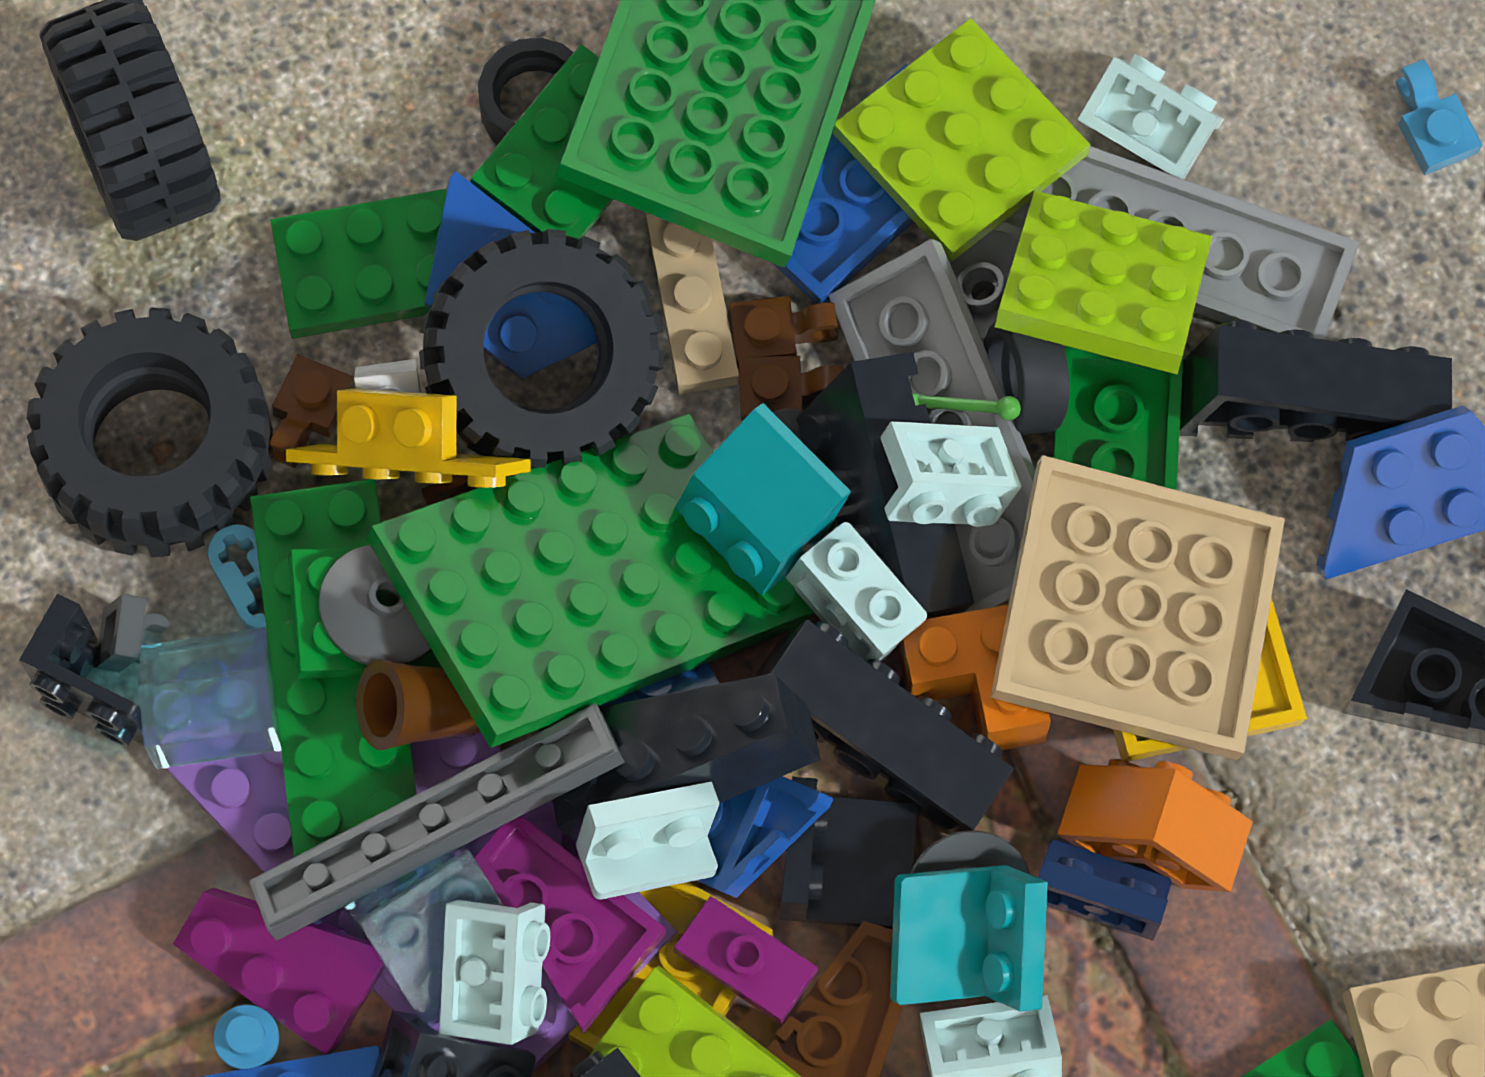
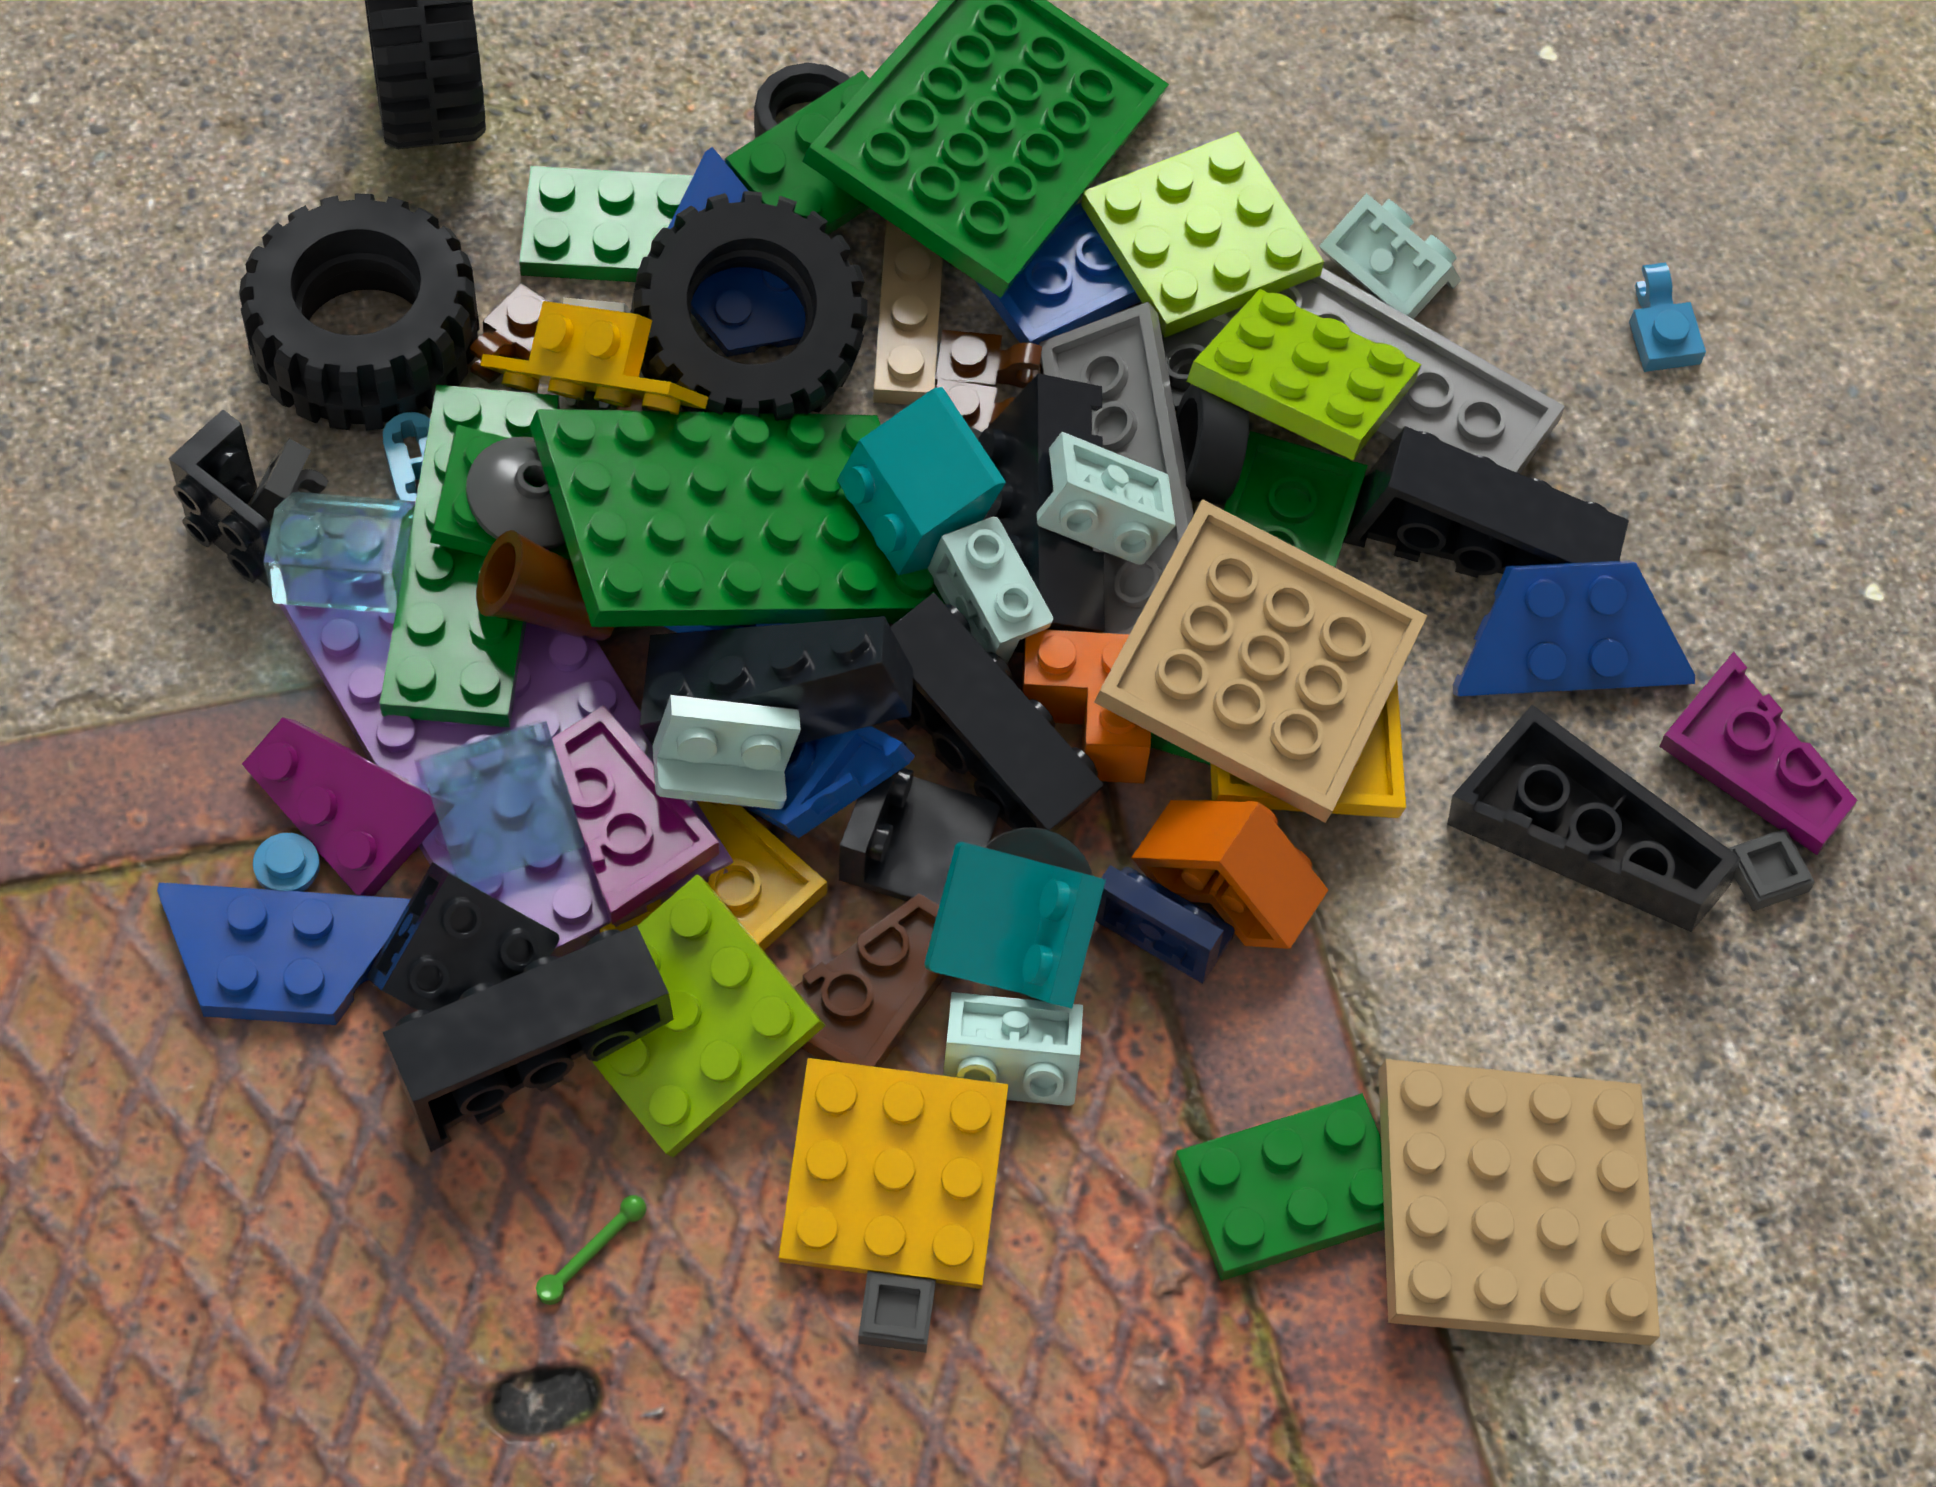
camera: 10 degrees right, 10 degrees down
(436, 821) = (522, 692): dark grey tile -> none
(493, 971) = (538, 836): light aqua bracket -> none
(745, 959) = (791, 898): magenta plate -> none
(1007, 408) = (1180, 458): bright green hinge -> none

